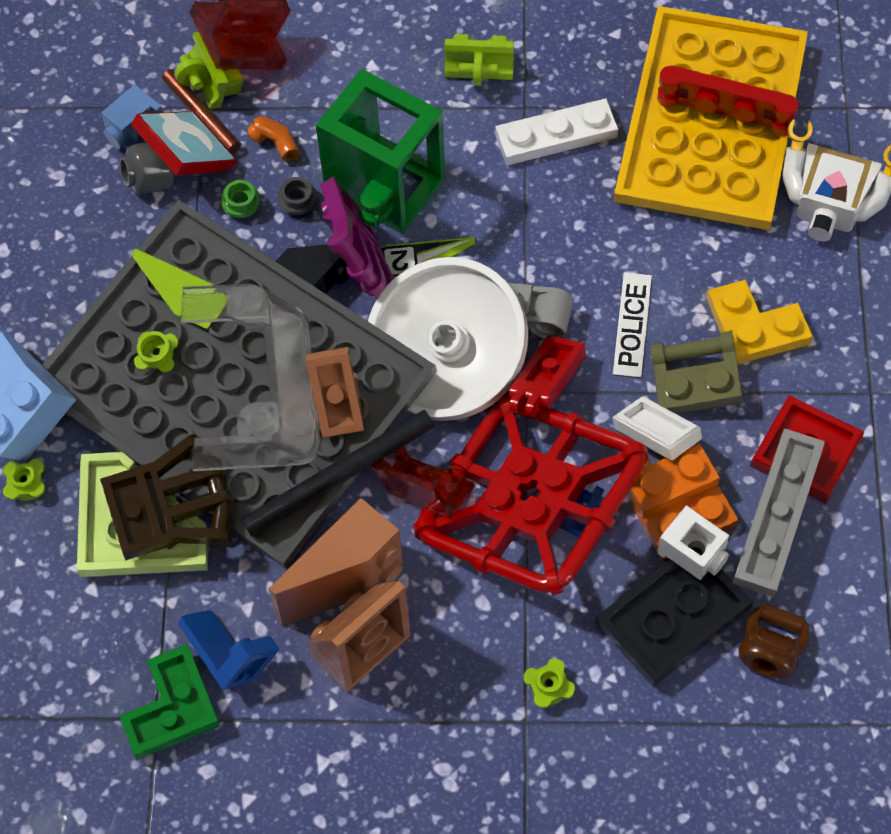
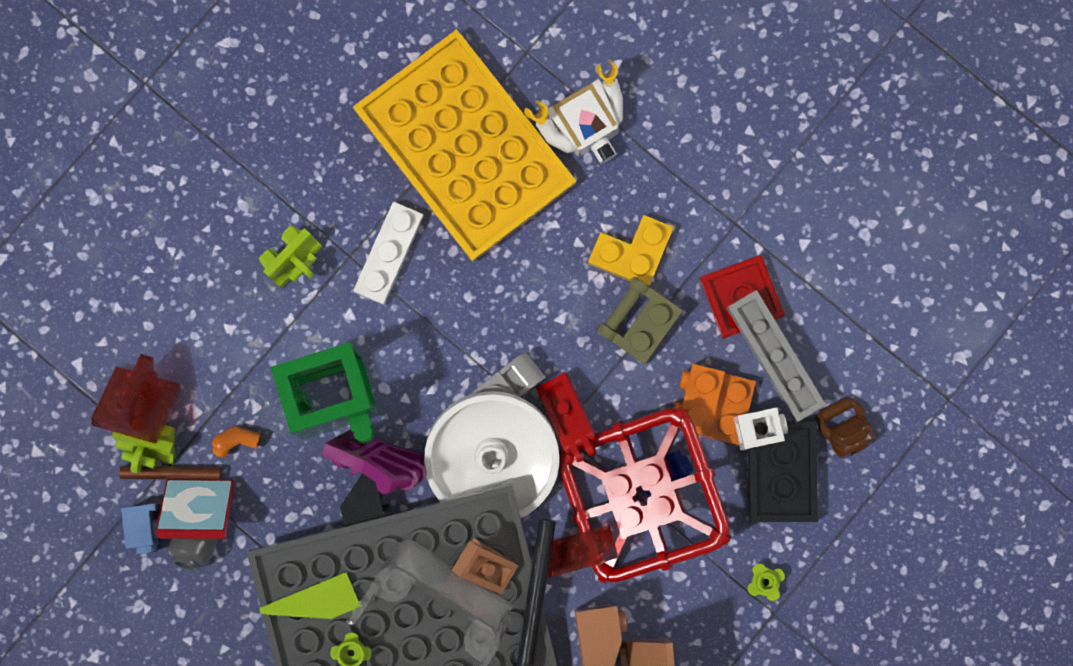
camera: 55 degrees left, 20 degrees up
(240, 190) = (256, 501): bright green plate -> none
(297, 187) = (286, 458): dark grey plate -> none
(403, 256) = (404, 423): sticker -> none
(632, 325) = (568, 326): white sticker -> none
(657, 428) = (659, 379): white tile -> none
(727, 98) = (481, 125): red plate -> none

